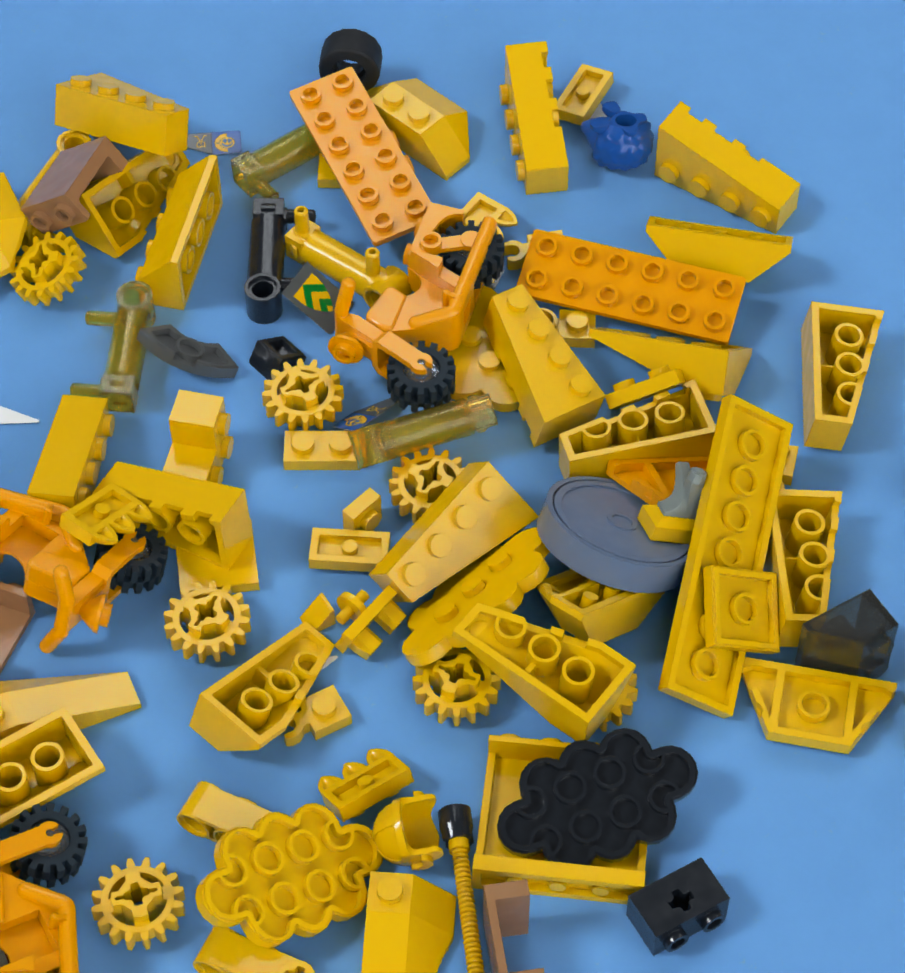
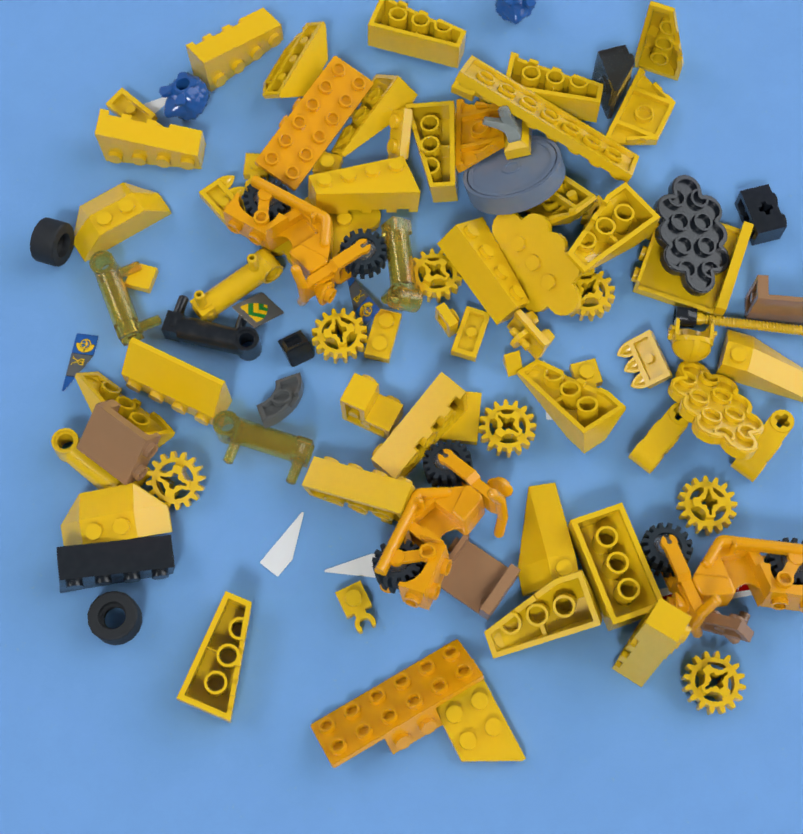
camera: 75 degrees left, 15 degrees up
(104, 515) = (433, 465): yellow plate -> none
(122, 113) = (57, 397): yellow wedge -> none
(362, 155) = (147, 251): light orange bracket -> none
(741, 610) = (585, 124): yellow tile -> none

